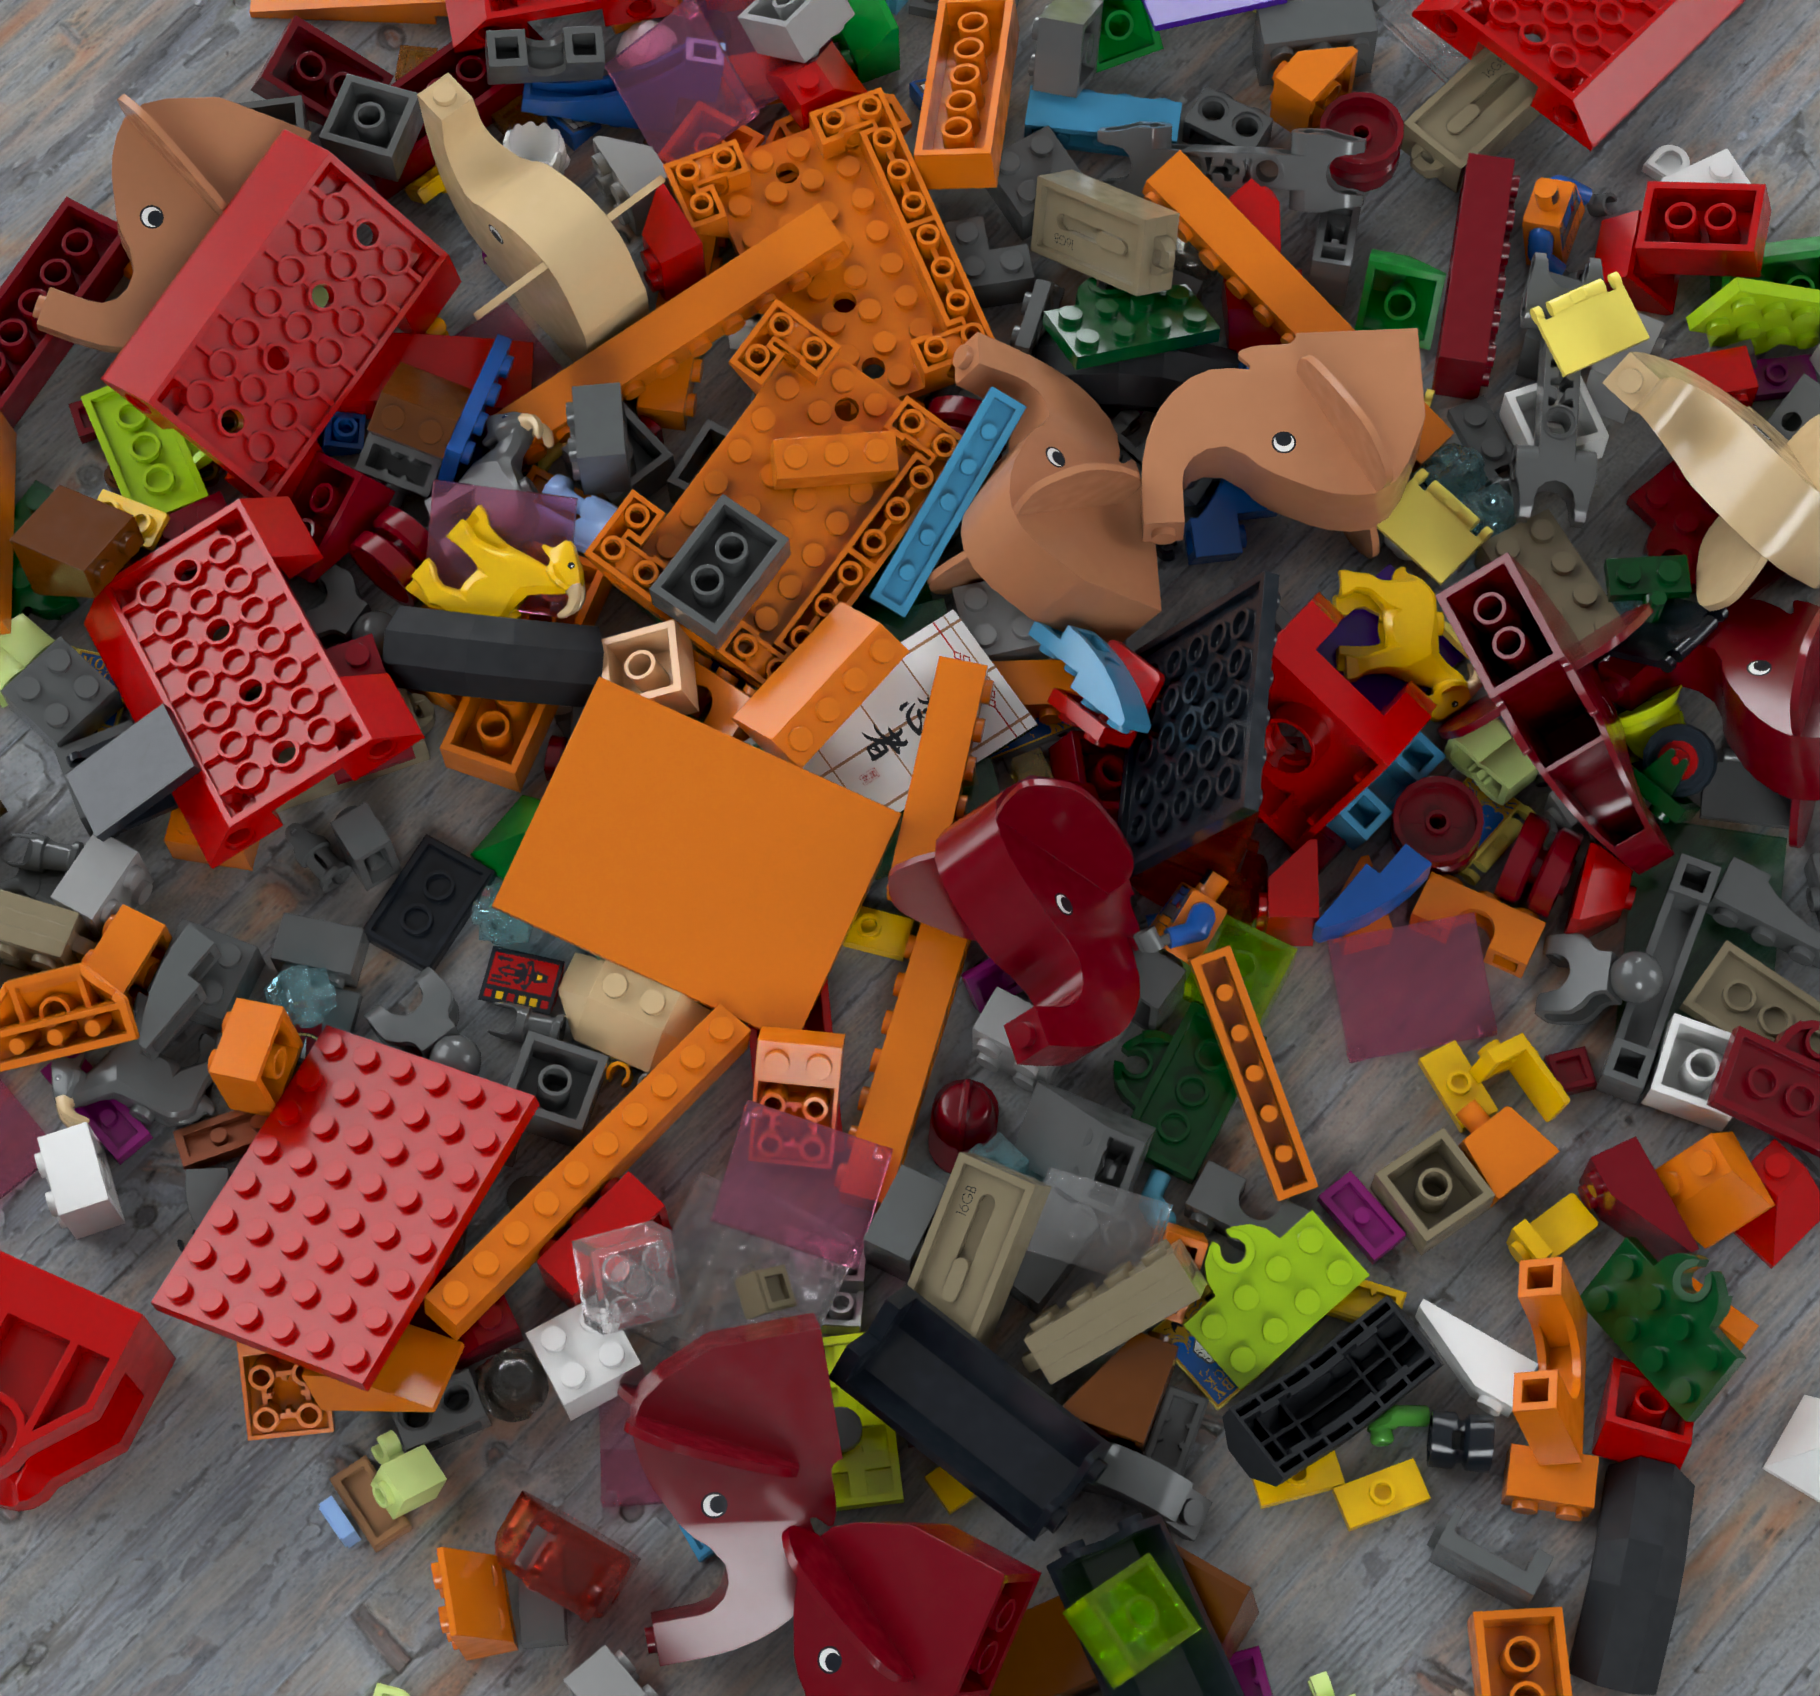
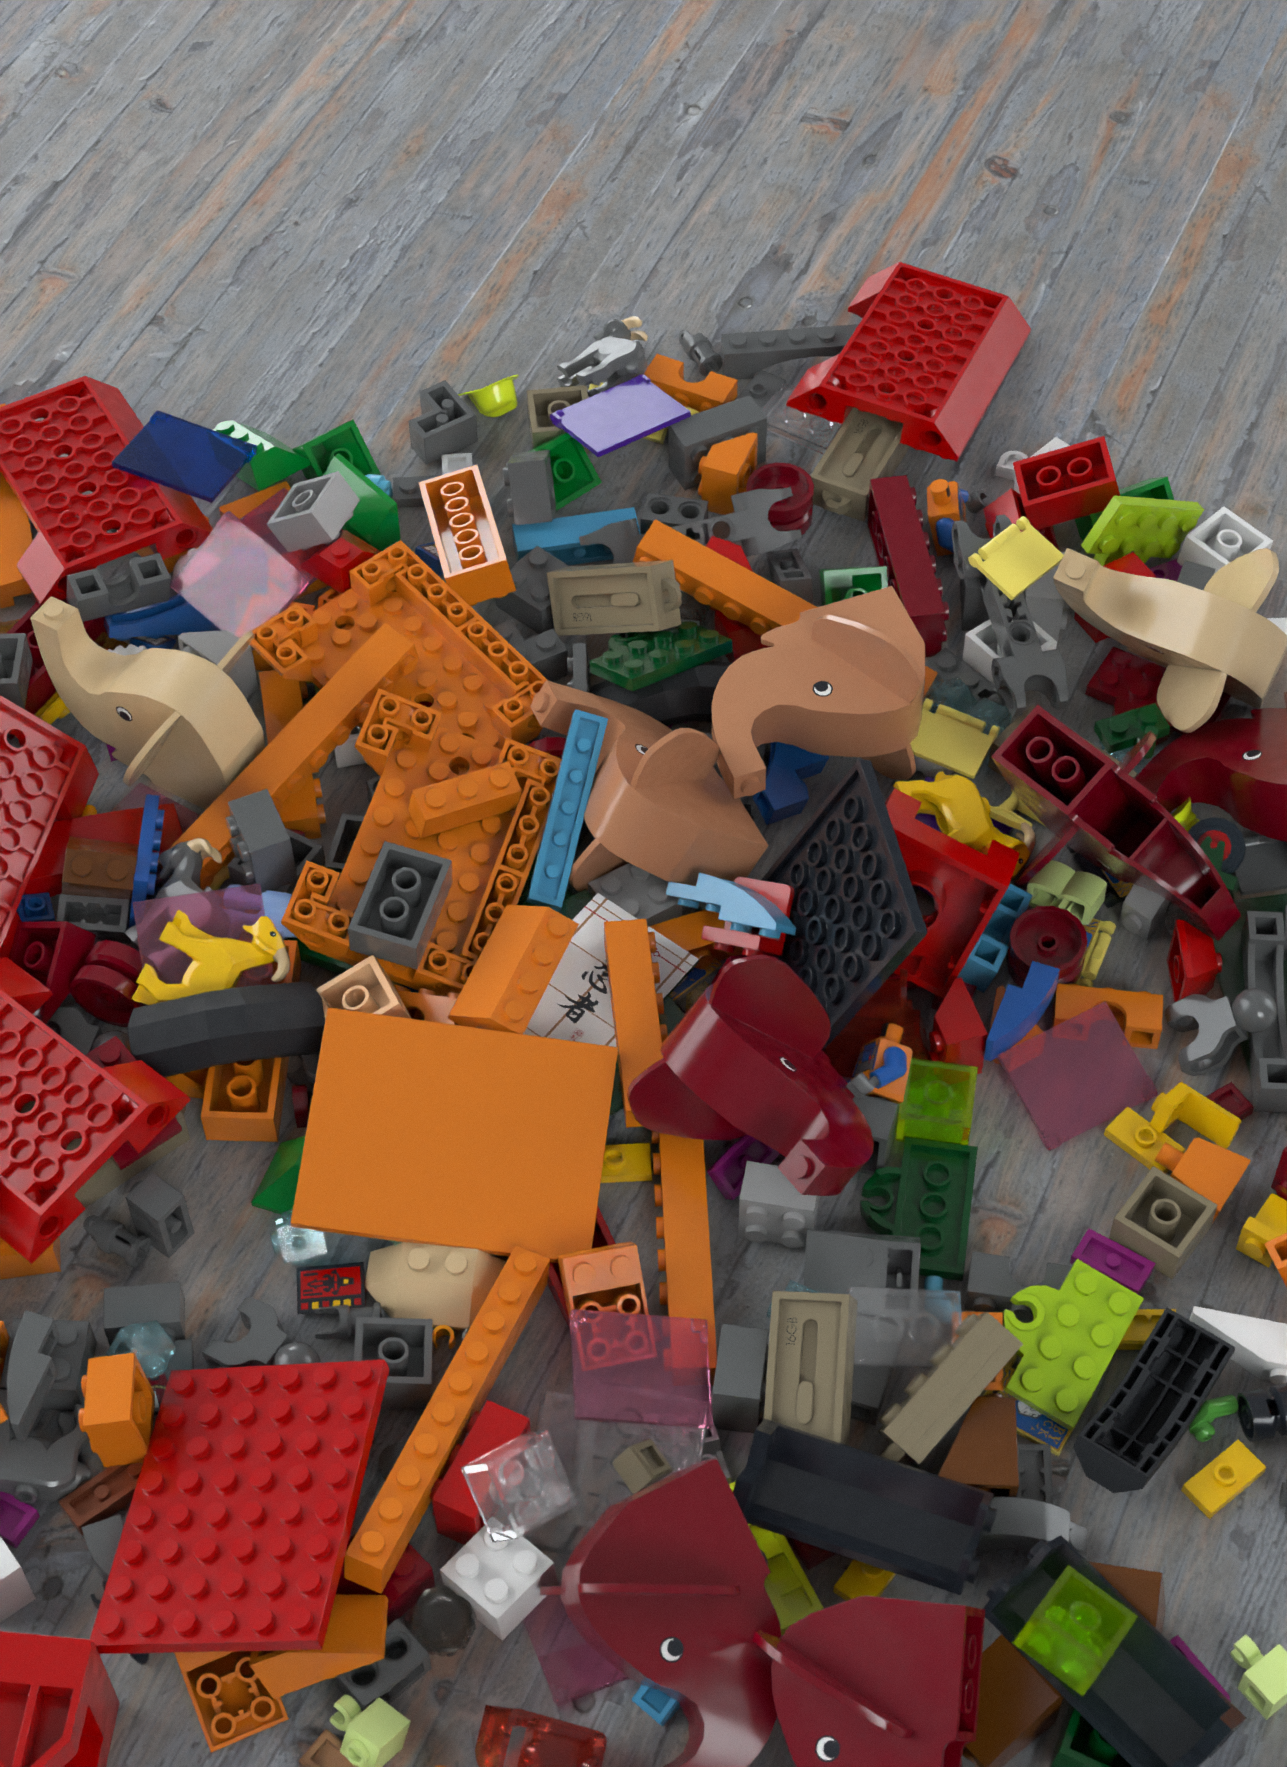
camera: 20 degrees left, 15 degrees down
(428, 904) = (227, 1251): black tile -> none
(670, 248) = (271, 692): red slope -> none
(961, 1118) = (748, 1289): dark red piece -> none
(1253, 1073) = (983, 1168): orange brick -> none
(1314, 1479) = (1162, 1485): yellow plate -> none
(1542, 866) = (1145, 954): dark red wheel -> none
(1672, 637) = (1170, 760): black piece -> none

